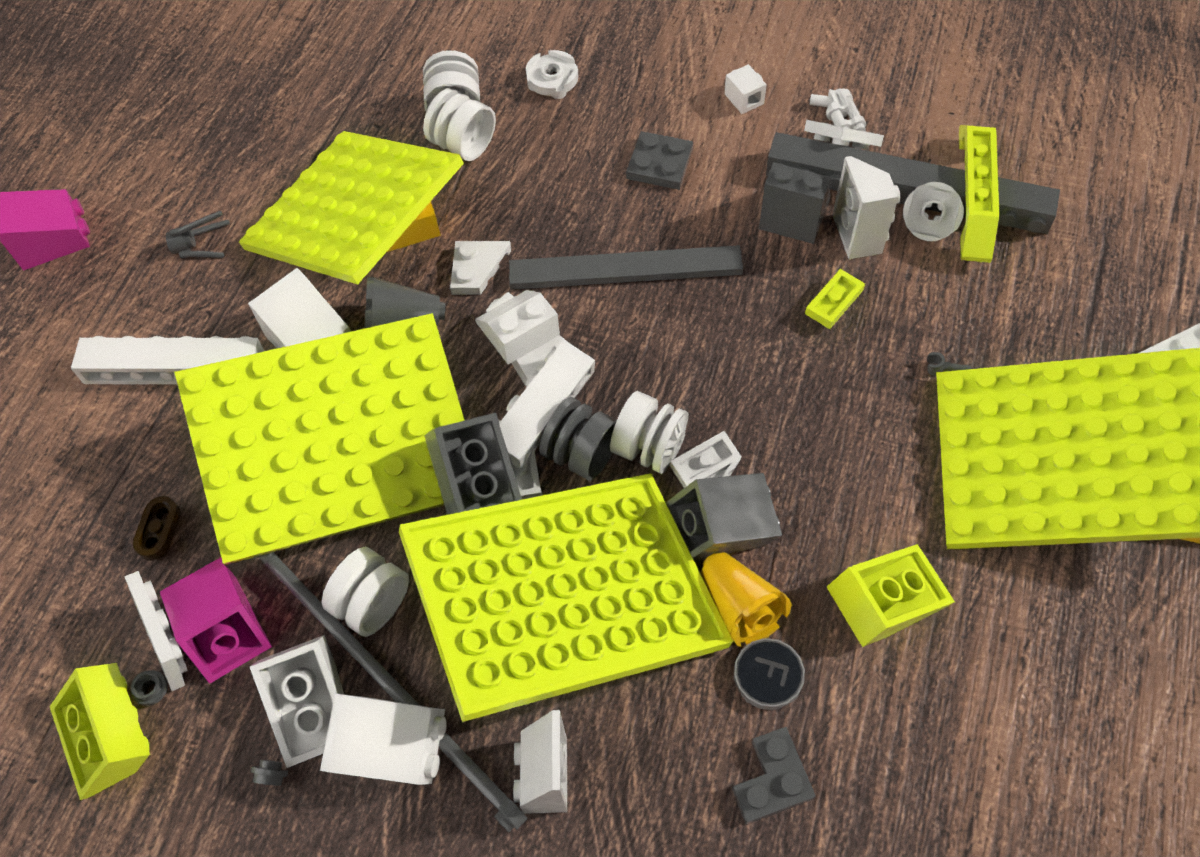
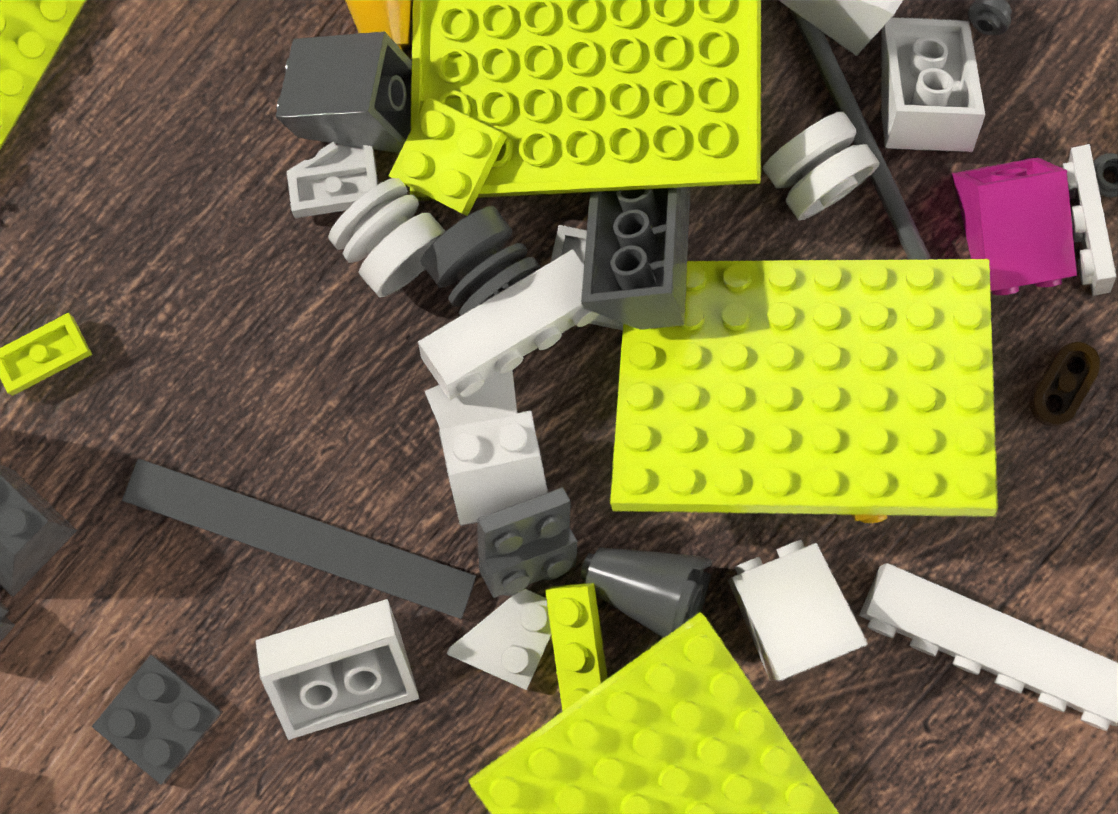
camera: 160 degrees left, 20 degrees up
(430, 264) = (576, 640): none -> neon yellow plate
(487, 287) = (526, 543): none -> dark grey plate
(572, 212) = (336, 669): none -> white slope
(634, 498) = (448, 156): none -> neon yellow plate

